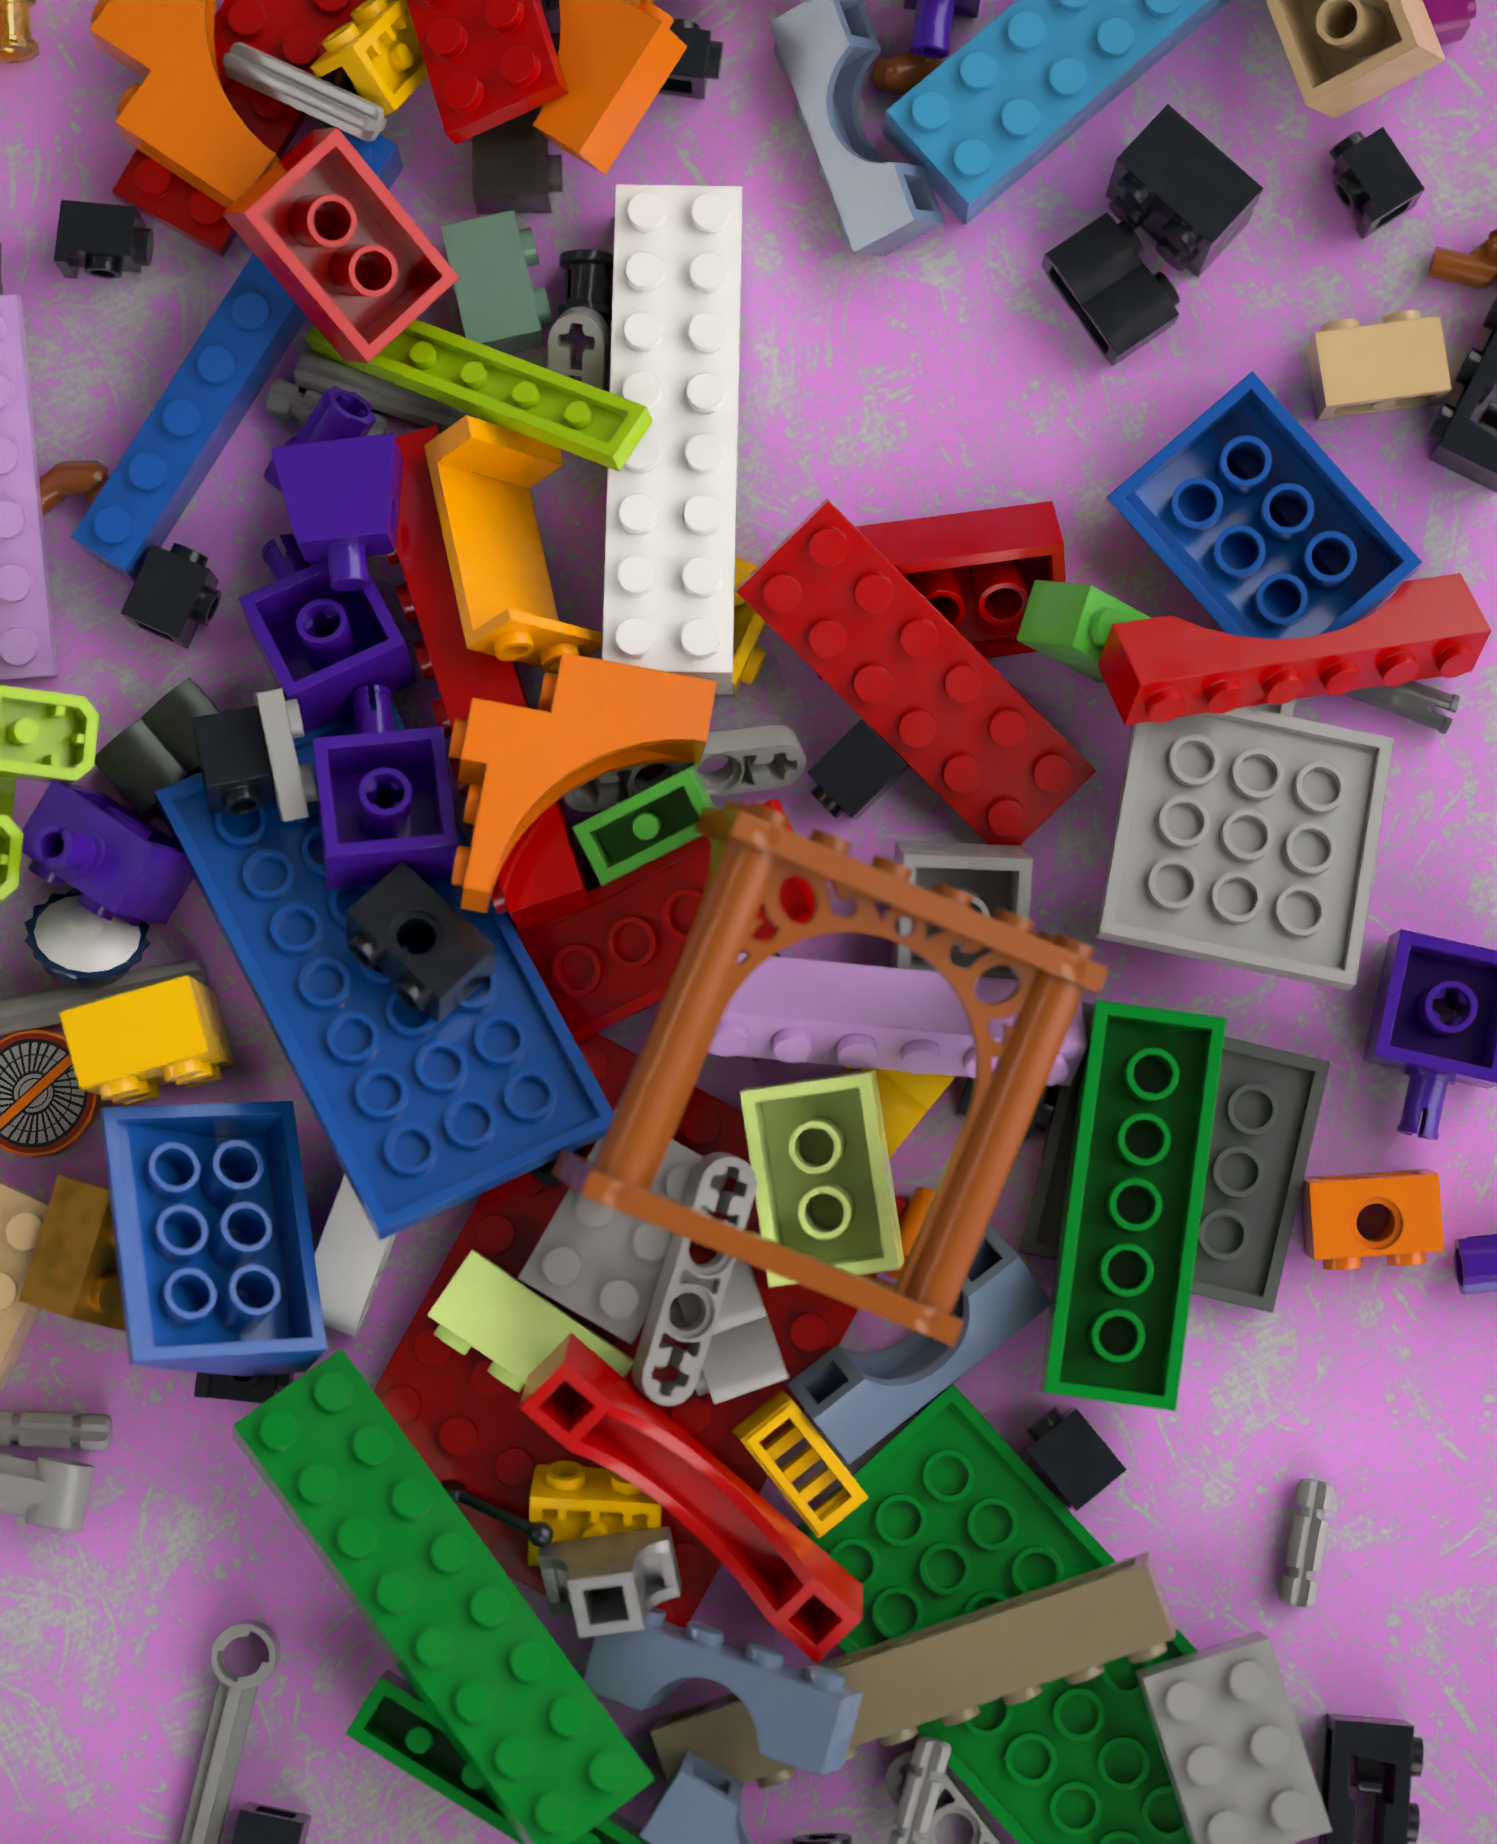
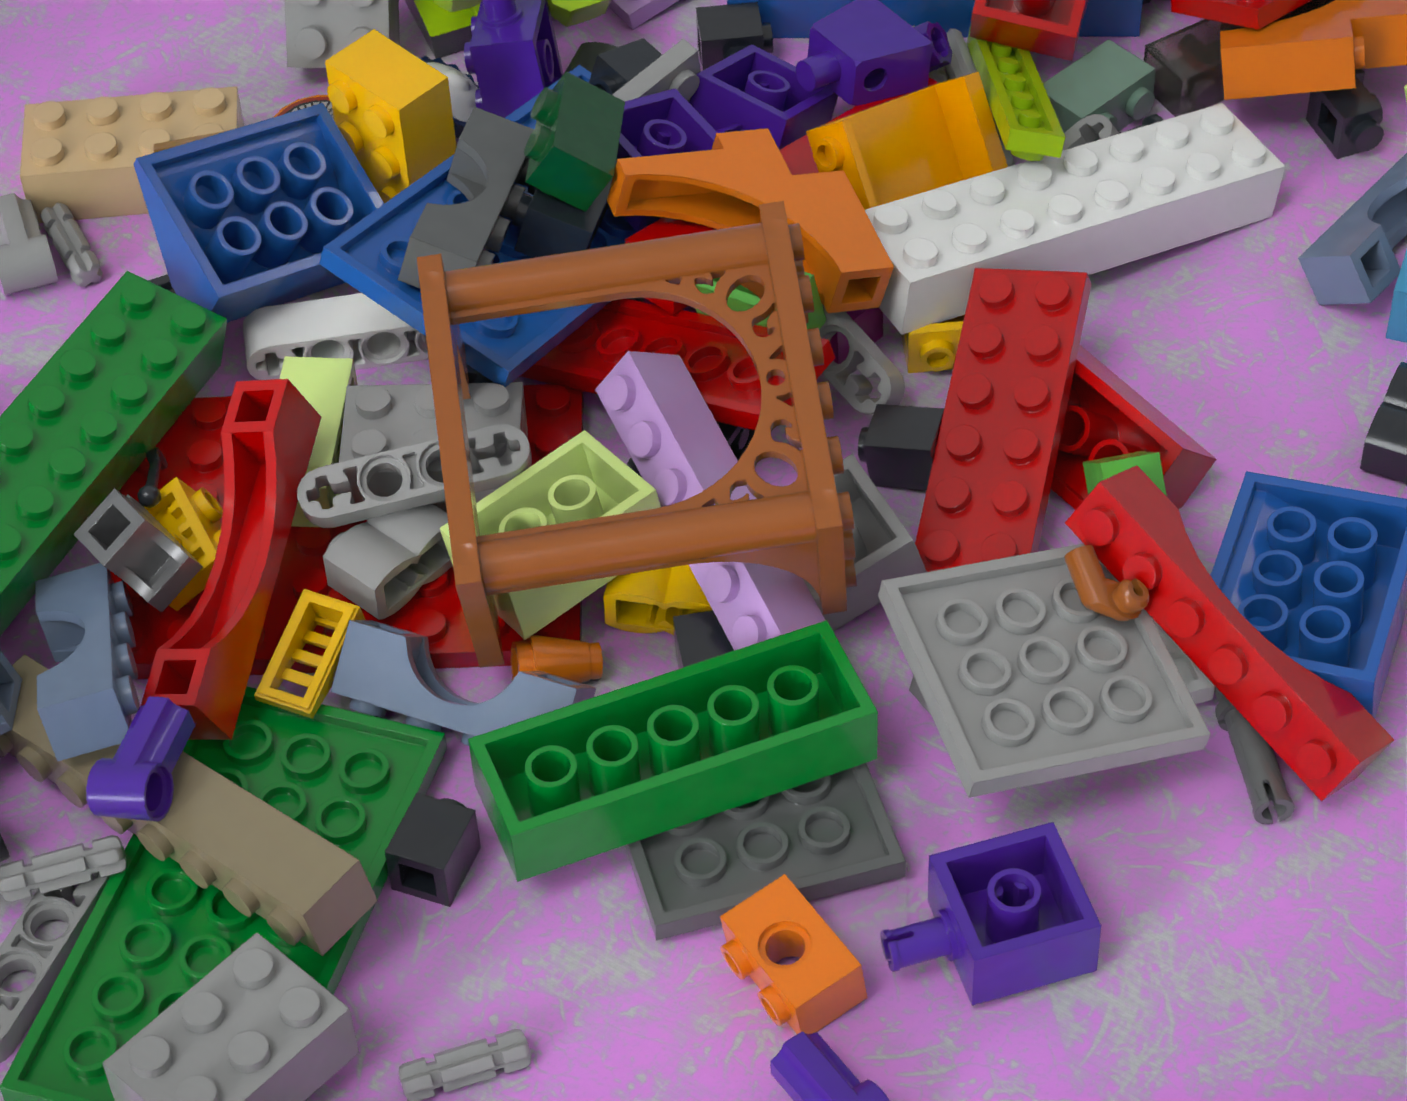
camera: 60 degrees right, 35 degrees down
(330, 992) = (488, 172): none -> dark grey arch
(393, 908) = (574, 141): none -> dark green brick
(922, 1712) = (140, 777): none -> dark purple piece
(1215, 739) = (1103, 595): none -> dark orange arm

